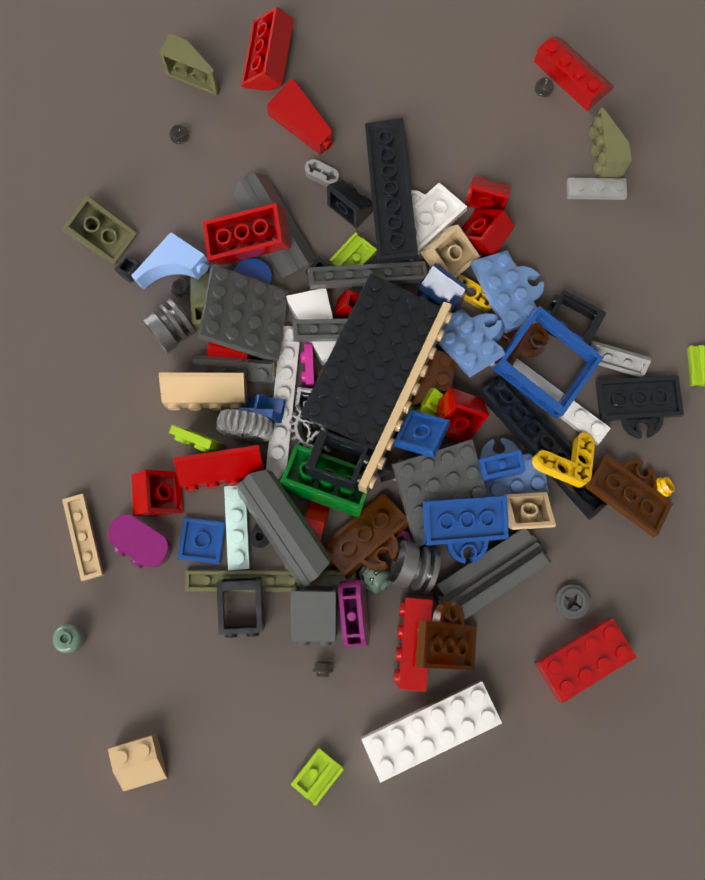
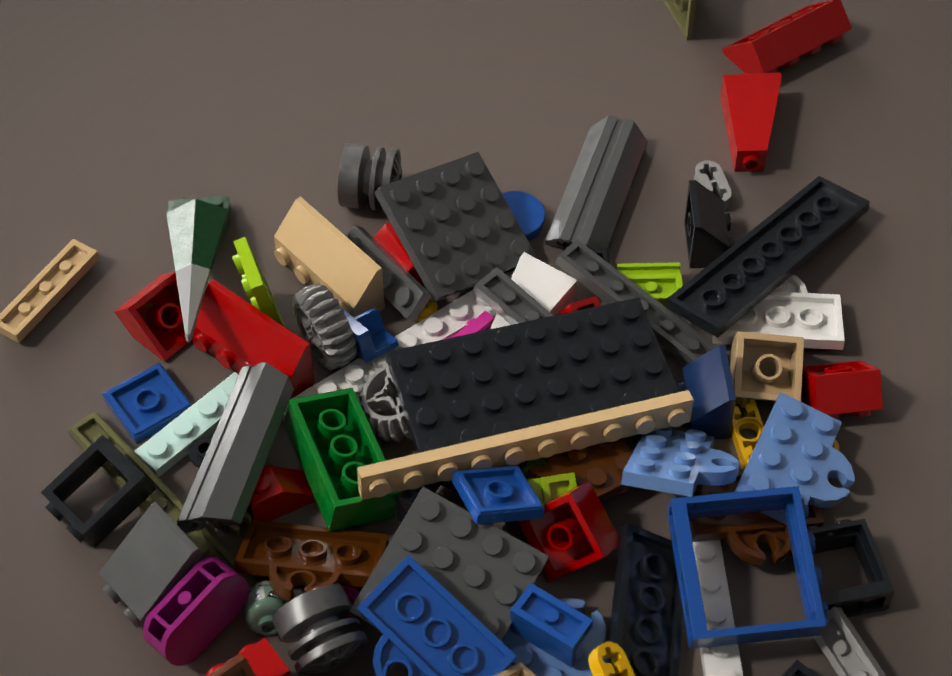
camera: 50 degrees right, 25 degrees down
(98, 230) = (413, 51): olive slope -> none
(119, 435) = (195, 238): none -> dark green plate
(127, 267) = (400, 106): black brick -> none
(139, 541) = (88, 342): magenta brick -> none
(171, 258) = (449, 128): light blue arch -> none
(176, 130) = (601, 38): clear smoke plate -> none
(180, 283) = (427, 160): clear smoke plate -> none
(246, 234) = (552, 161): red brick -> none
(322, 668) = (95, 644): clear smoke plate -> none
(343, 444) = (375, 403): black window -> none
(487, 194) = (886, 348): red slope -> none

